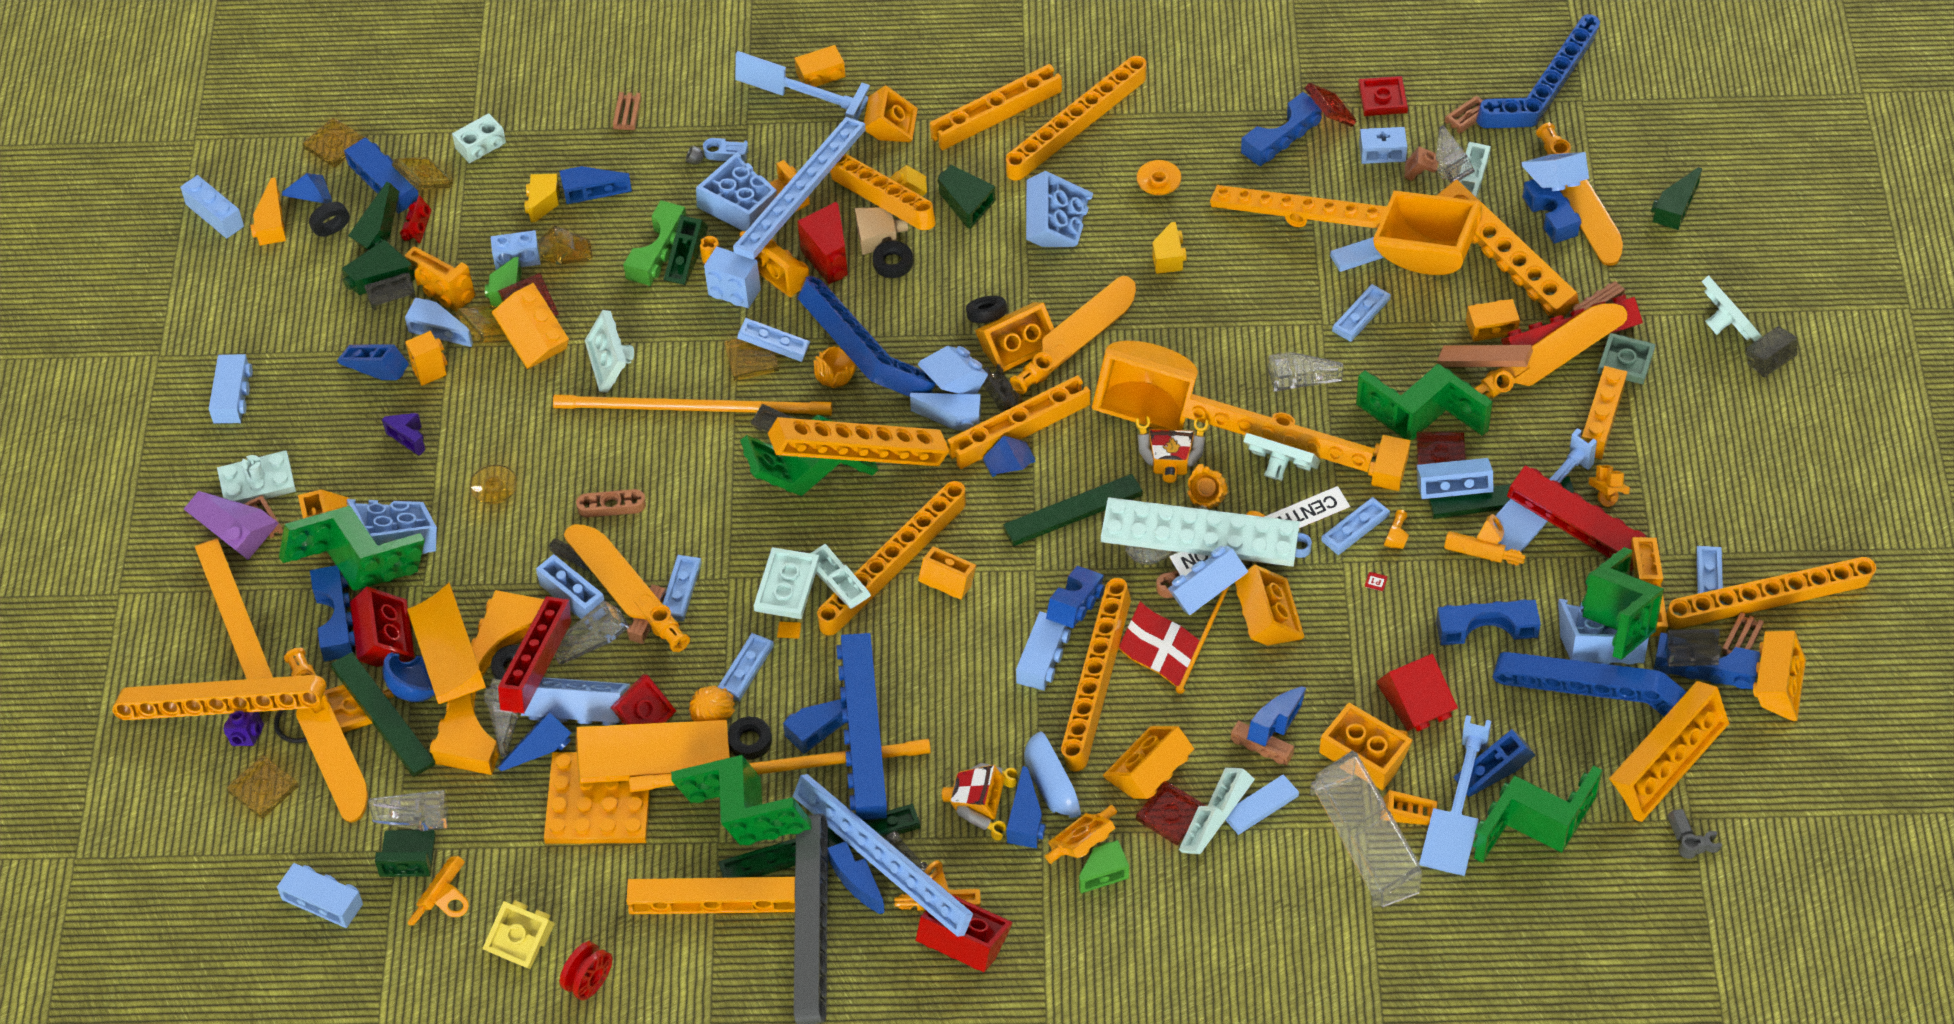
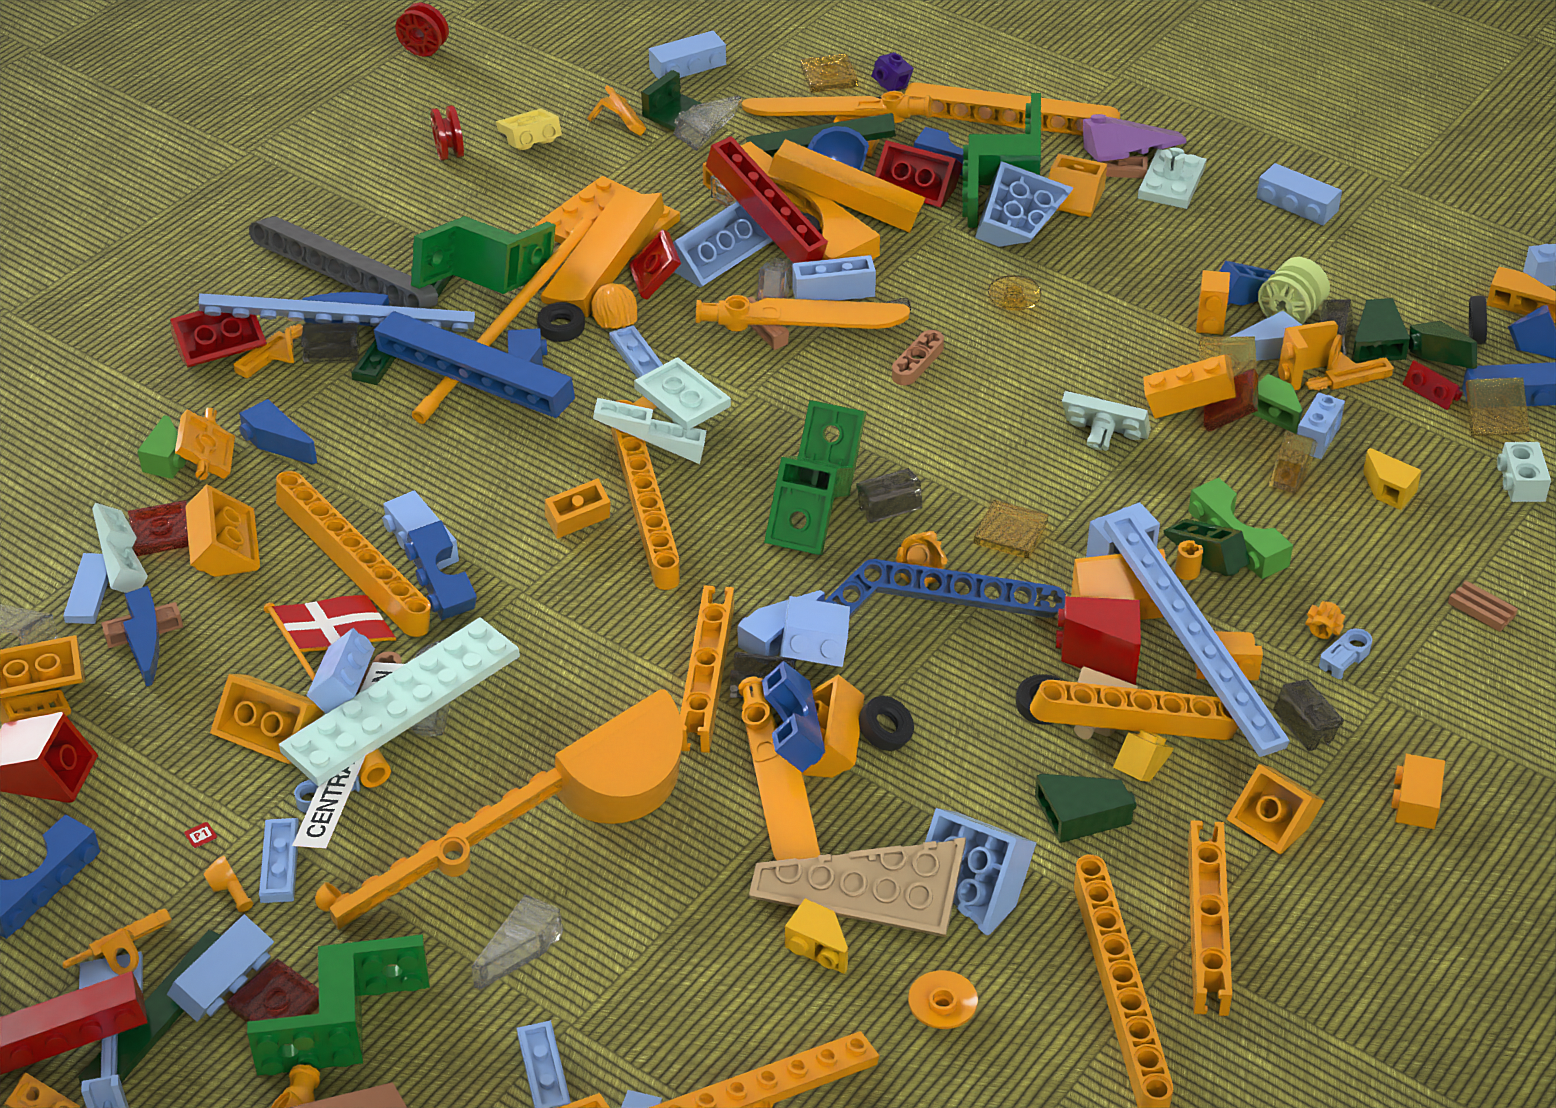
camera: 125 degrees right, 10 degrees down
(219, 697) = (925, 59): light orange beam -> none
(375, 321) = (1295, 288): none -> yellowish green wheel
(405, 431) = (1136, 267): dark purple slope -> none
(540, 740) = (692, 202): blue slope -> none
(573, 402) = (893, 535): light orange piece -> none
(592, 183) = (1380, 519): blue slope -> none
(681, 585) = (771, 357): light blue tile -> none
(694, 155) = (1357, 619): flat silver hinge -> none
(710, 162) = (1325, 620): none -> light orange gear
(711, 895) = (472, 201): light orange piece -> none
(735, 193) = (1253, 606): light blue wedge -> none
(773, 79) = (1424, 728): light blue piece -> none
(773, 339) = (1010, 544): light blue tile -> none
(801, 136) = (1307, 714): none -> clear smoke hinge
(858, 442) = (792, 385): light orange brick -> none
(978, 795) = (327, 408): torso -> none
(1008, 456) = (665, 640): blue slope -> none
(1046, 320) = (800, 735): none -> blue arch
(1050, 776) = (268, 463): light blue brick -> none
(1070, 510) = (556, 654): dark green tile -> none
(1110, 235) = (882, 886): none -> tan wing
(1171, 450) = (534, 752): torso -> none
(1206, 487) = (450, 752): light orange hair -> none
(1280, 456) = (411, 827): light aqua plate -> none
(1357, 476) = (326, 896): none -> light orange hinge
(1390, 462) = (305, 927): light orange brick -> none

